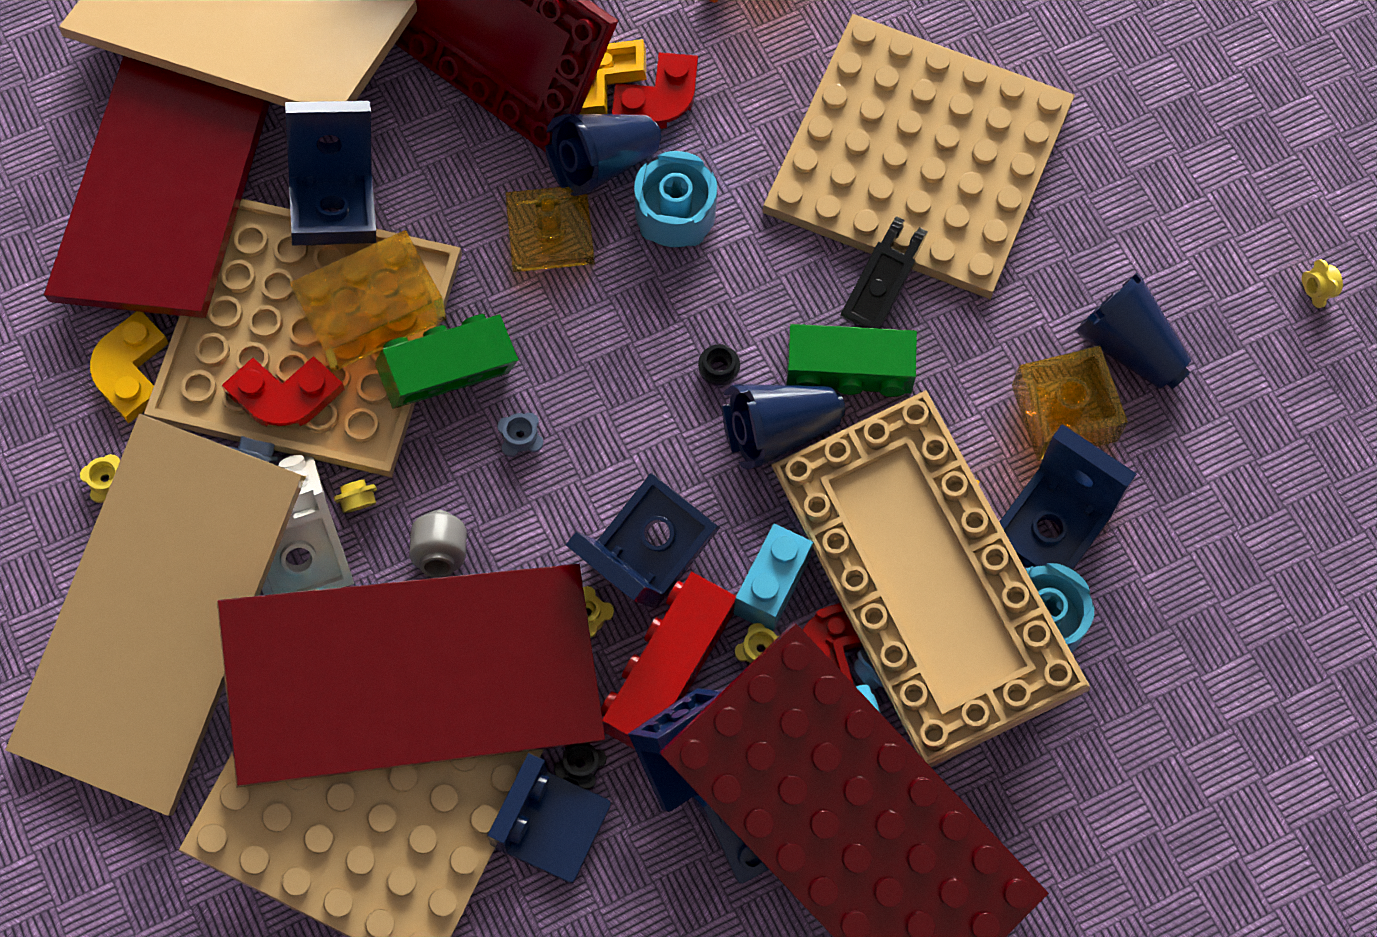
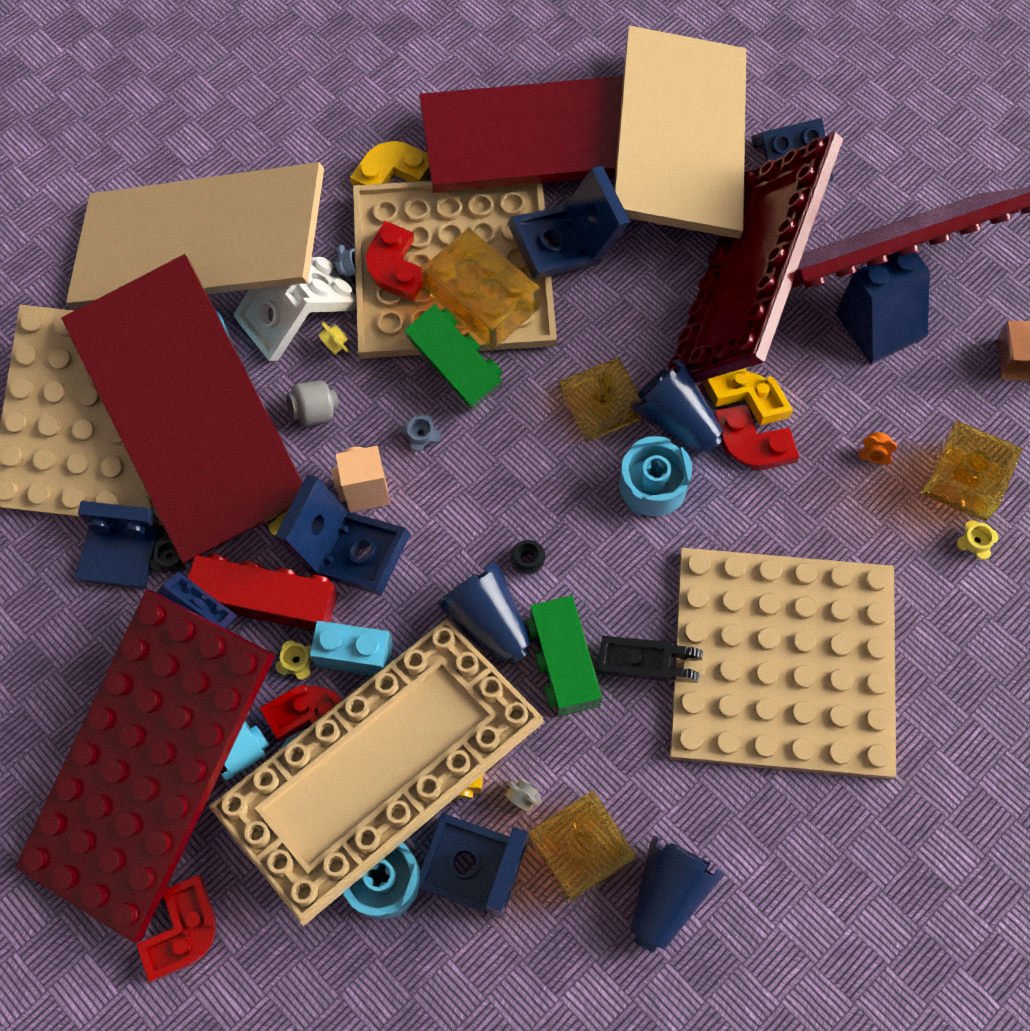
camera: 75 degrees right, 0 degrees up
(568, 501) = (361, 478): none -> light nougat brick
(991, 447) = (523, 794): none -> light grey plate
(1053, 841) = (192, 931): none -> red plate

